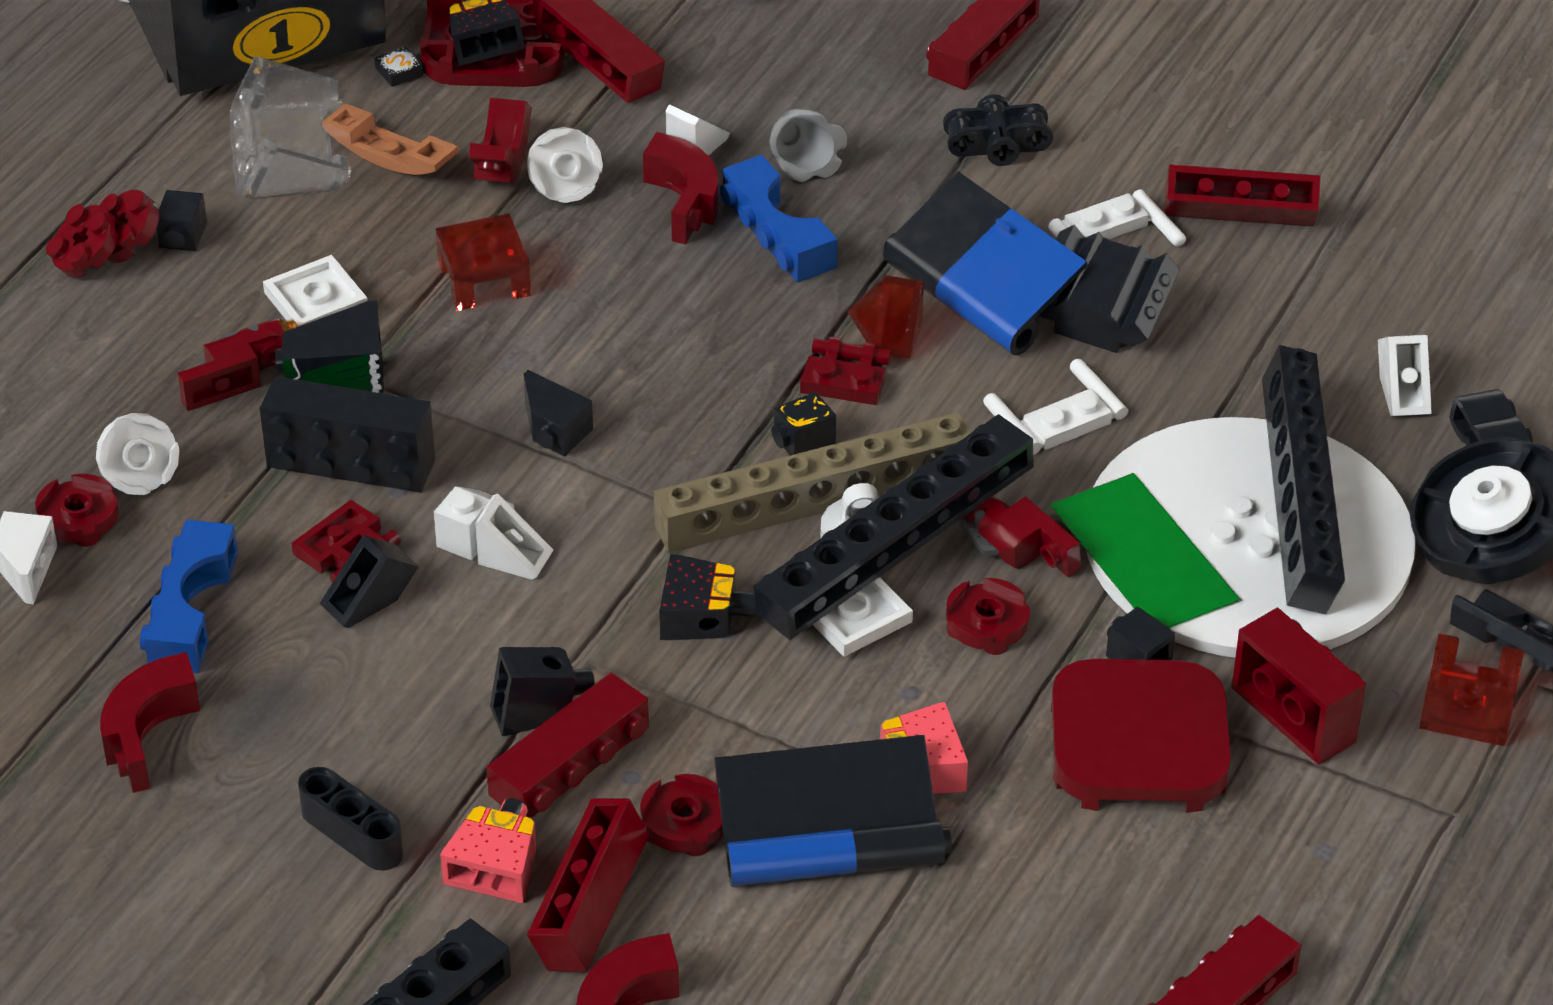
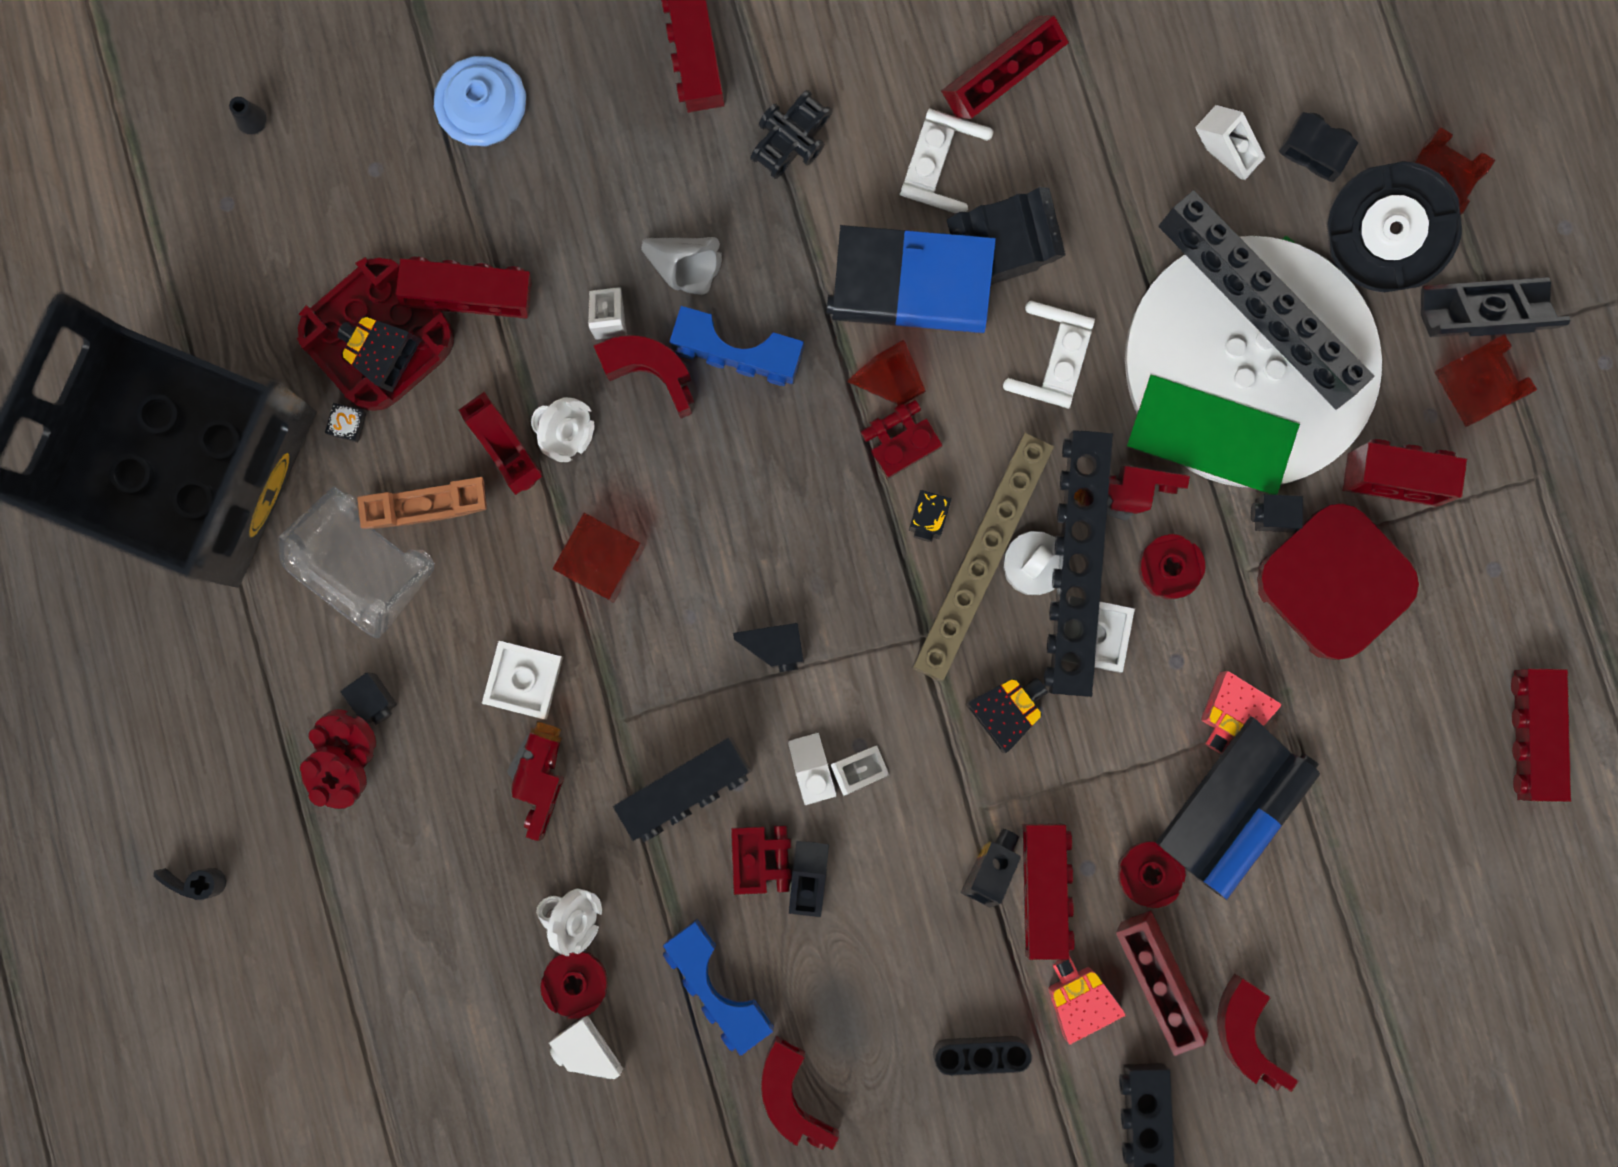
camera: 40 degrees left, 40 degrees up
(336, 350) = (613, 737): black slope -> none

